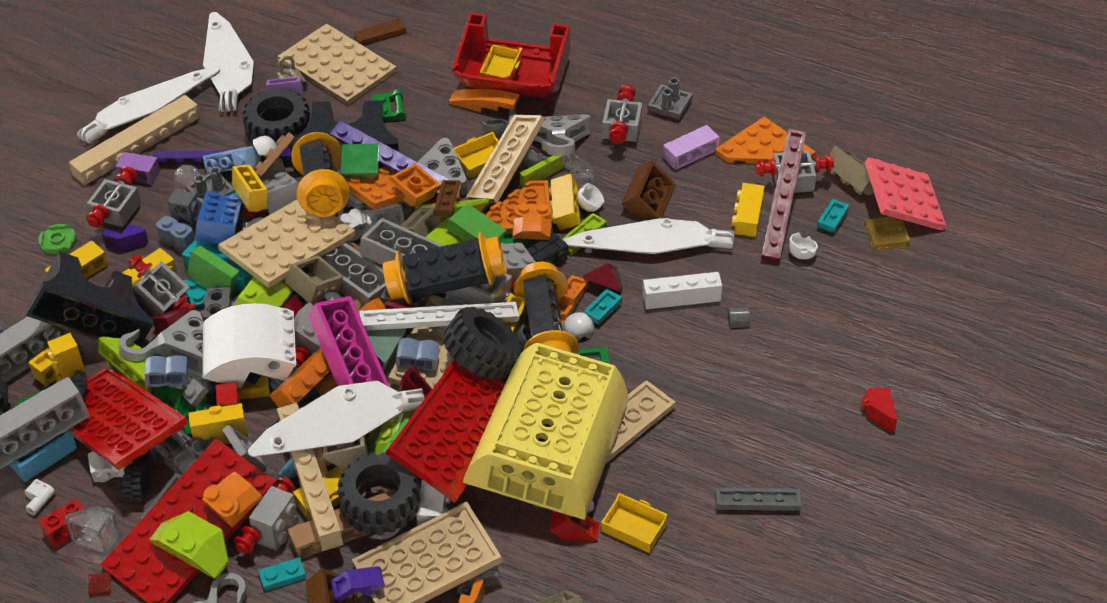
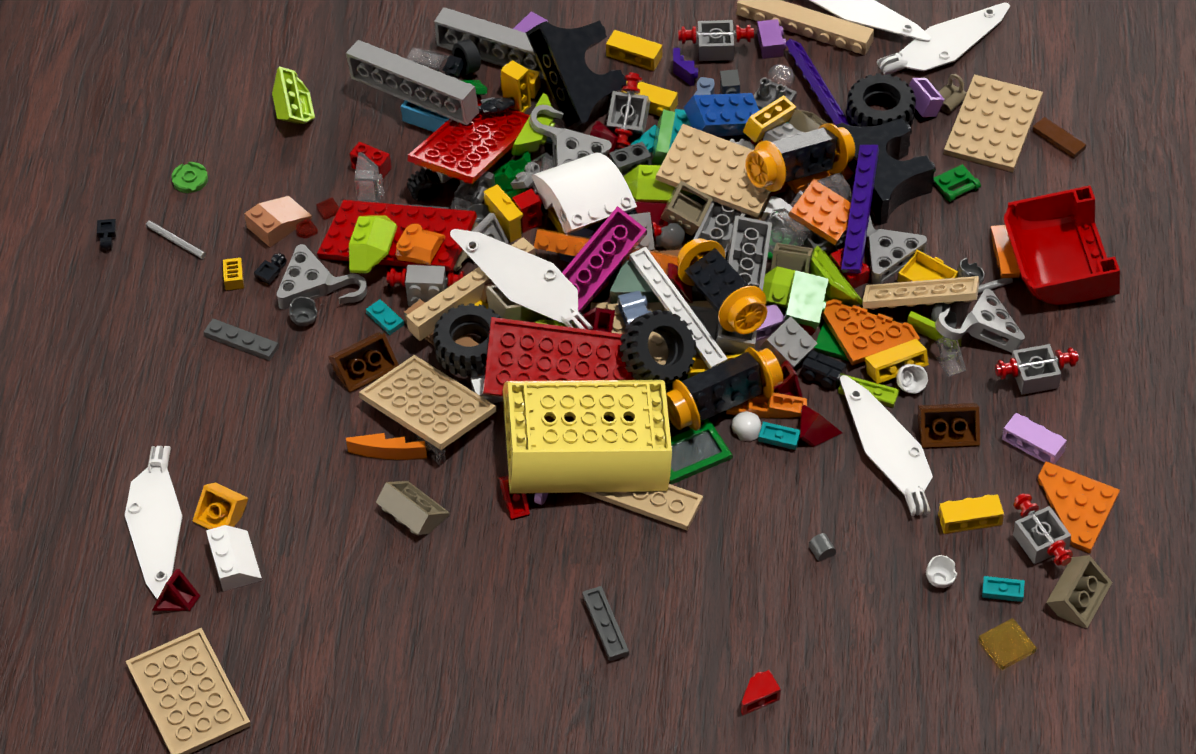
camera: 70 degrees right, 5 degrees up
(39, 494) = (394, 135): white piece -> none
(57, 238) = (662, 25): bright green tile -> none
(166, 371) = (526, 149): sand blue brick -> none
(232, 158) = (811, 97): light blue slope -> none
(264, 144) = (827, 110): white hair -> none
(272, 155) = (814, 118): medium nougat plate -> none
(360, 160) = (837, 179): green tile -> none
(363, 580) = (382, 362): dark purple slope -> none
(415, 185) = (831, 232): orange slope -> none
(447, 198) = (827, 262): reddish brown tile -> none
(501, 63) = (1057, 245): yellow container -> none
(532, 221) = (846, 342): orange slope -> none
(634, 522) = (537, 538): yellow container -> none
(670, 100) = (1094, 402): flat silver plate -> none
(682, 290) = (829, 490): white brick -> none
(783, 195) = (993, 530): plate -> none
(904, 194) = (1059, 639): coral plate -> none

